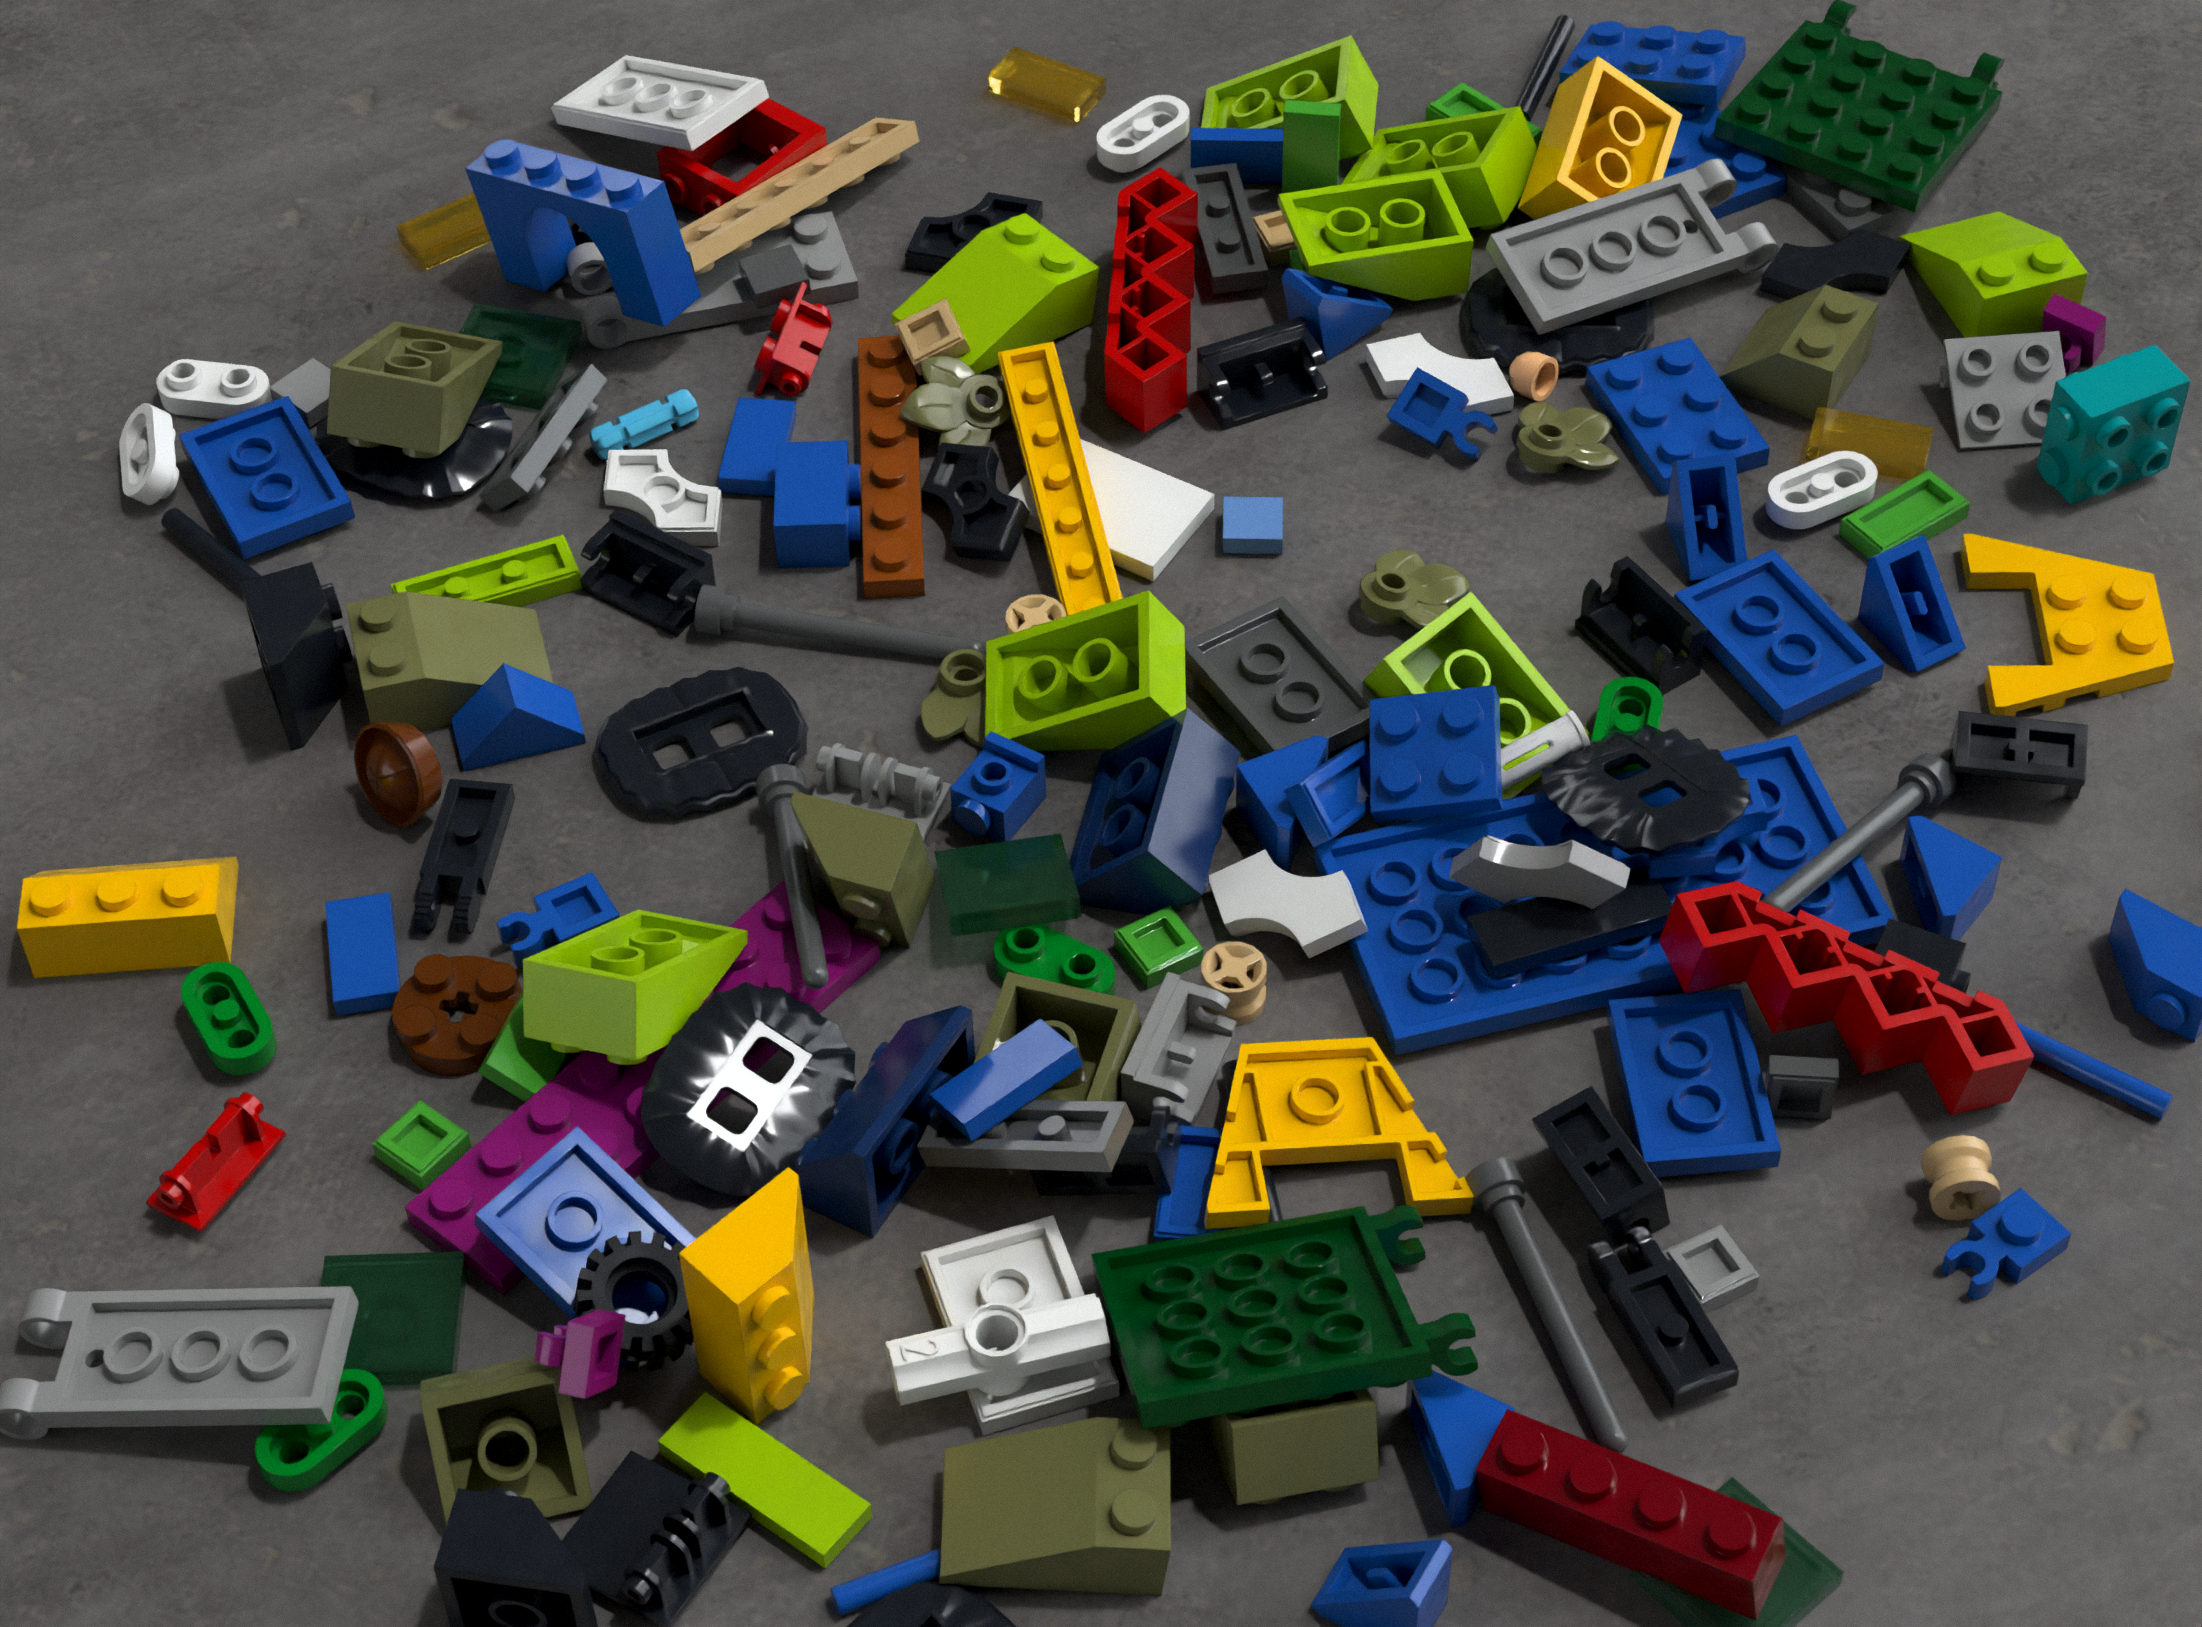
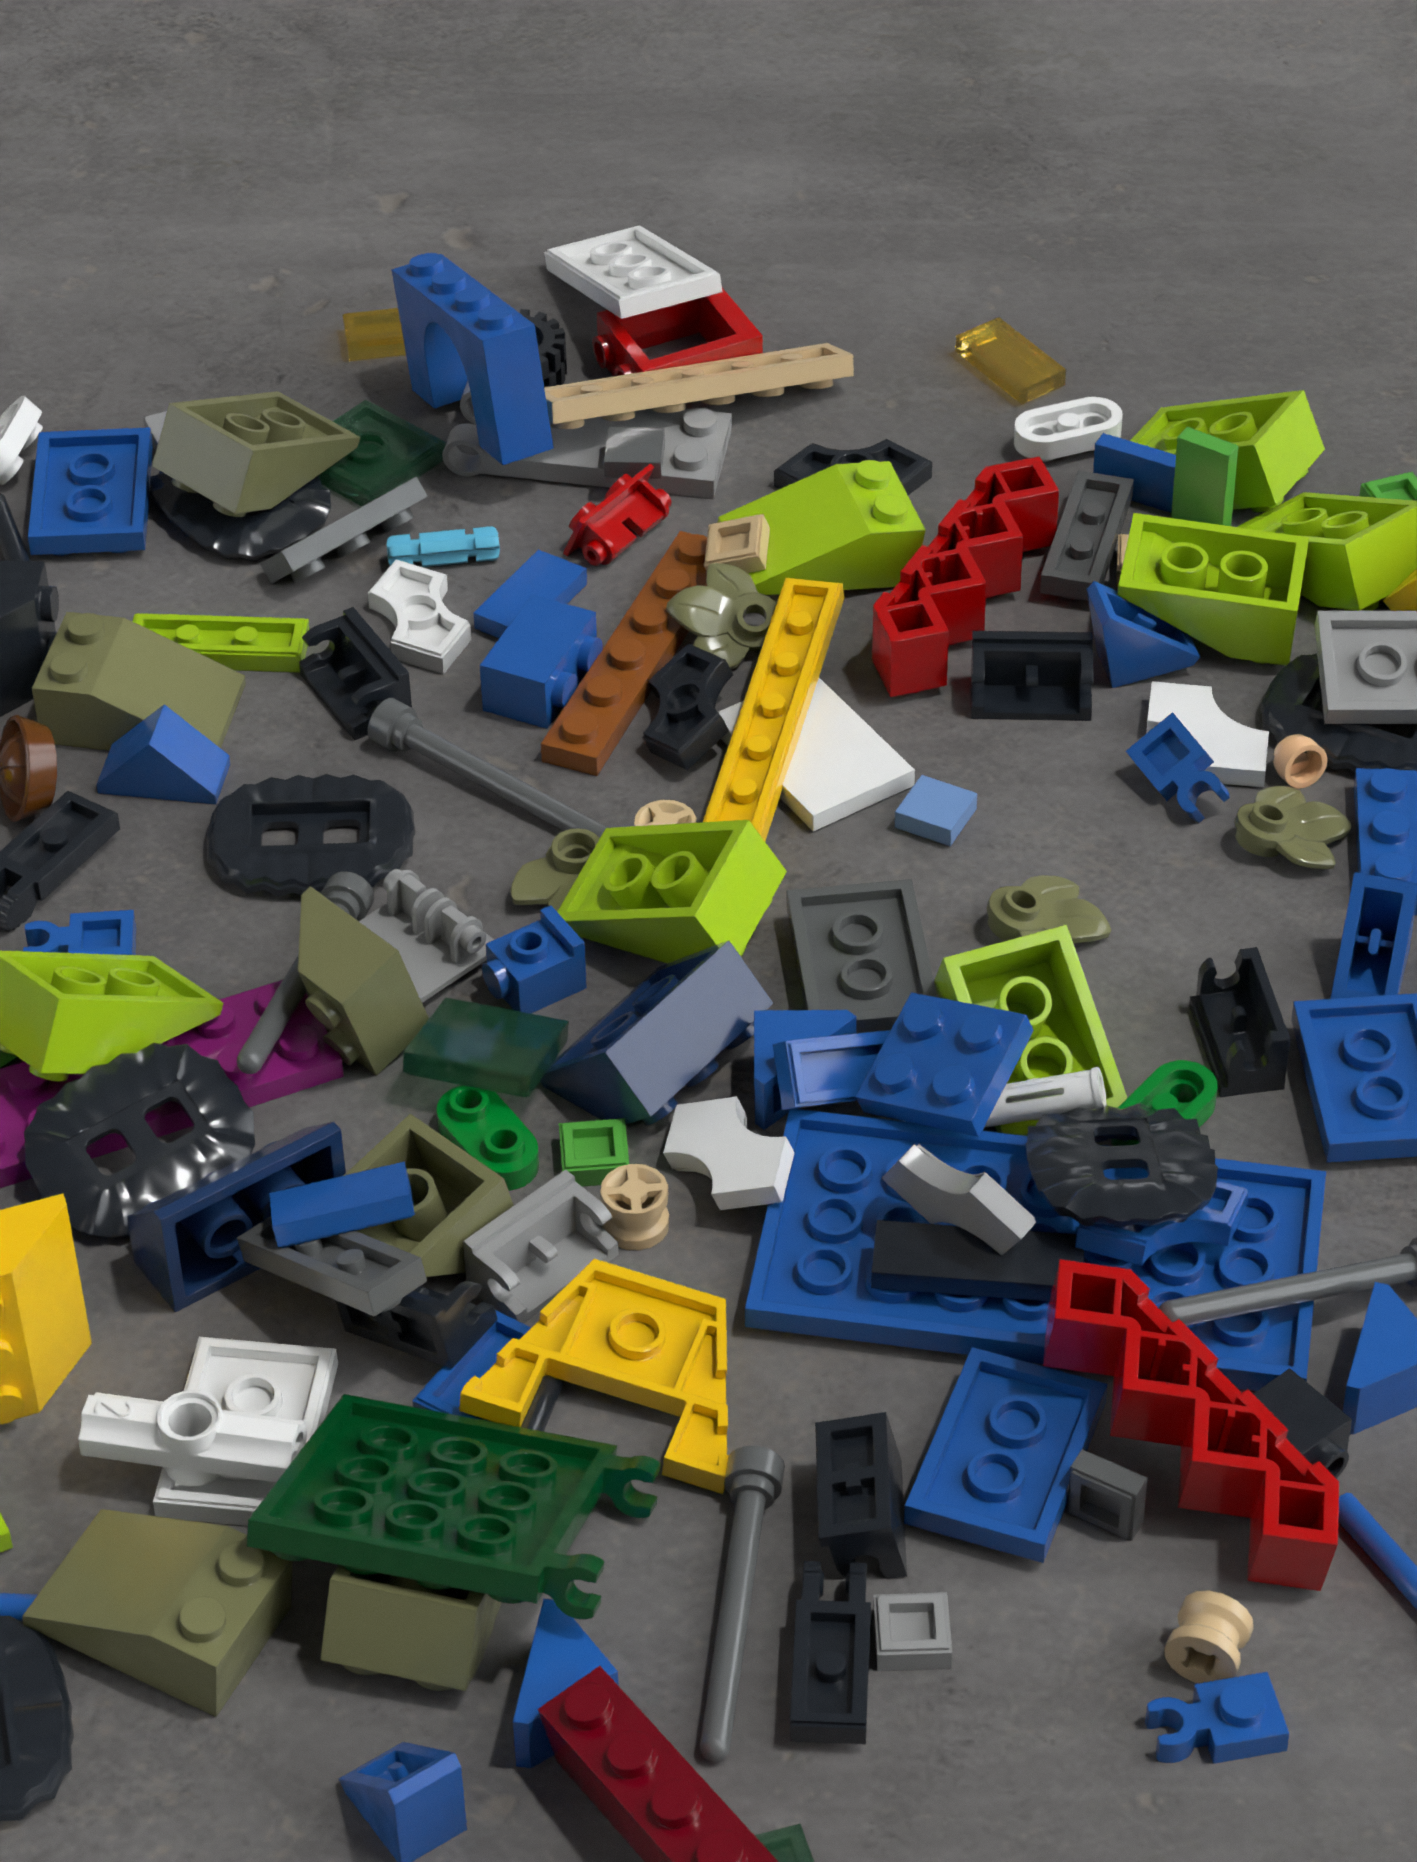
camera: 25 degrees right, 5 degrees down
(211, 388) = (97, 403): white plate -> none

